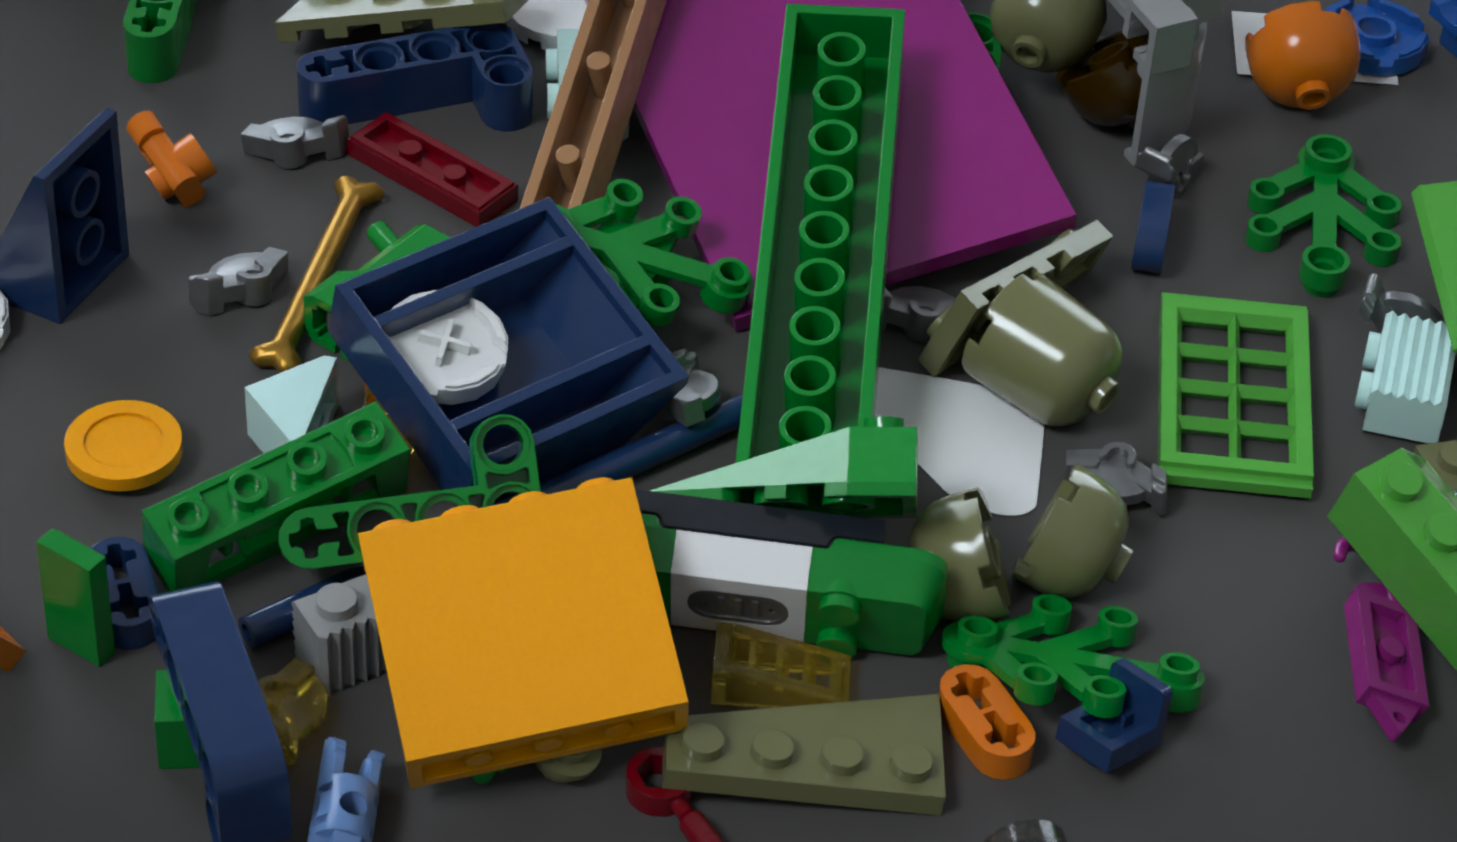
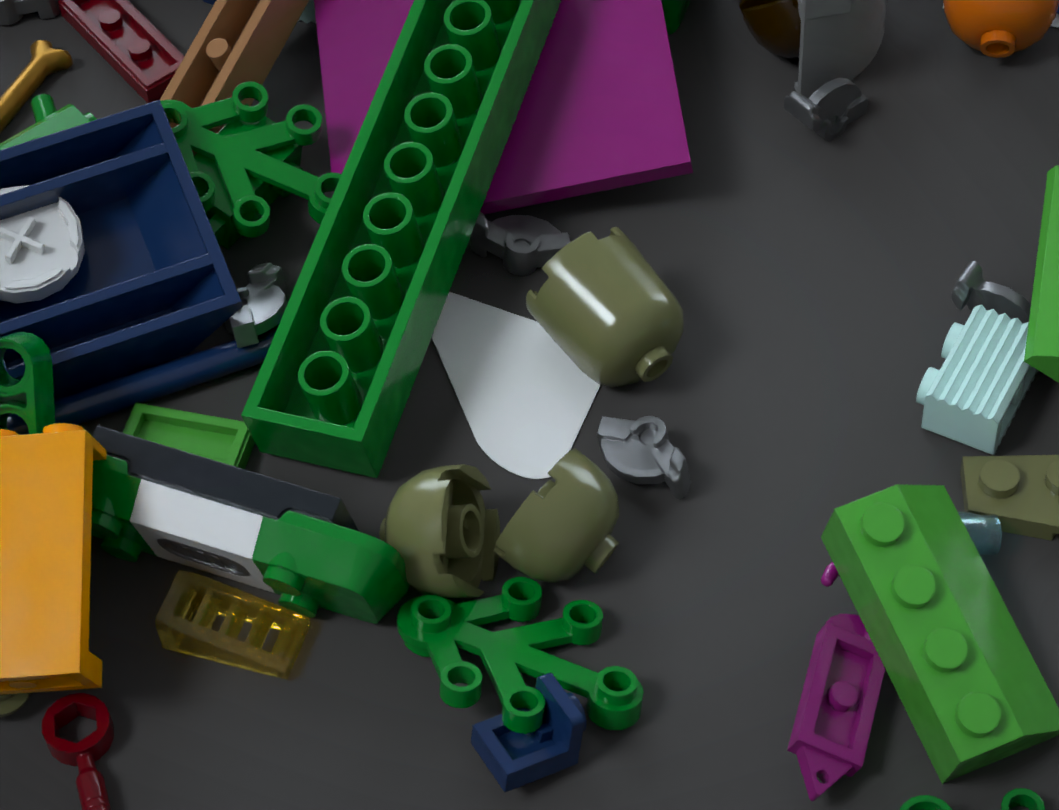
camera: 20 degrees right, 10 degrees up
(827, 754) = (234, 726): olive wing -> none
(840, 473) = (322, 437): green wedge -> none
(996, 716) = (398, 713): orange beam -> none
(1061, 261) = (641, 219): olive wing -> none
(1153, 227) = (783, 175): dark blue beam -> none
(1234, 472) = (770, 462): bright green piece -> none
(1328, 164) = (986, 121): green plant -> none

